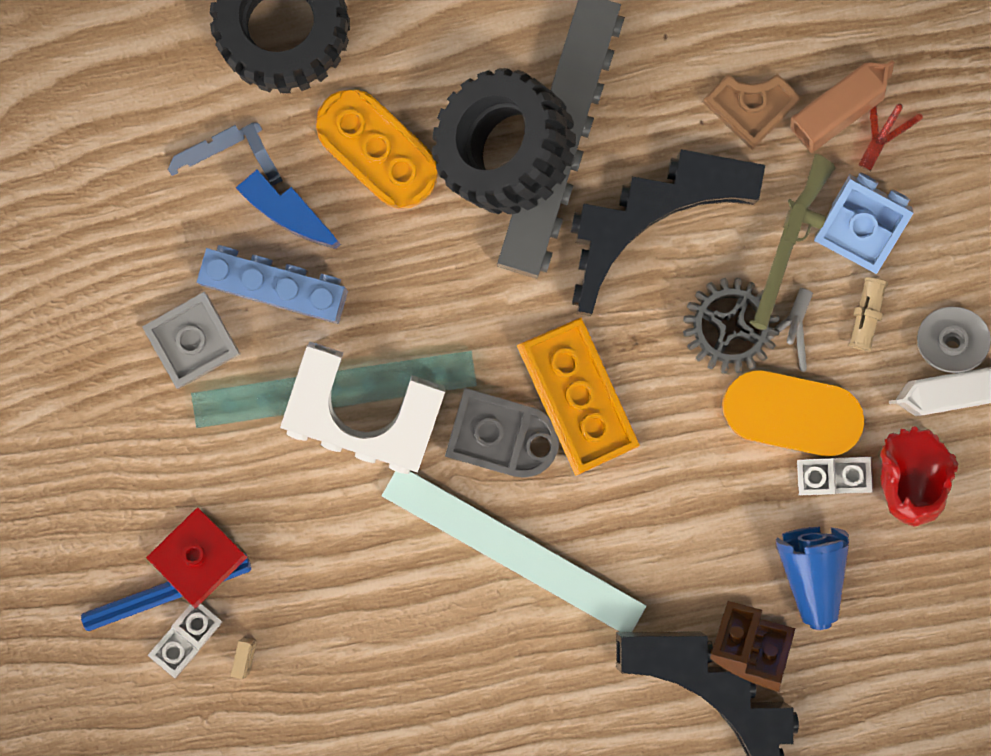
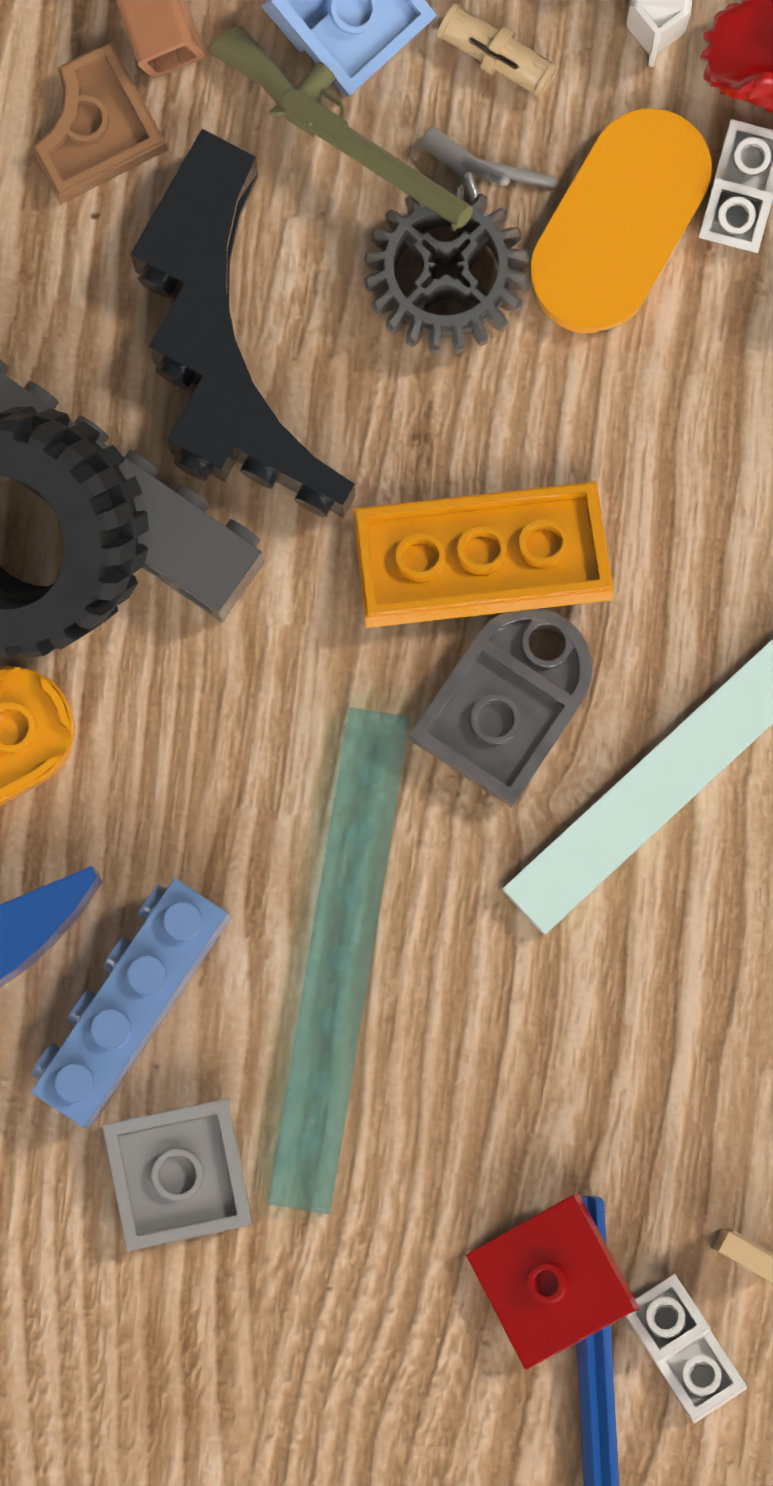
camera: 75 degrees left, 5 degrees down
(313, 416) = (465, 872): white arch -> none

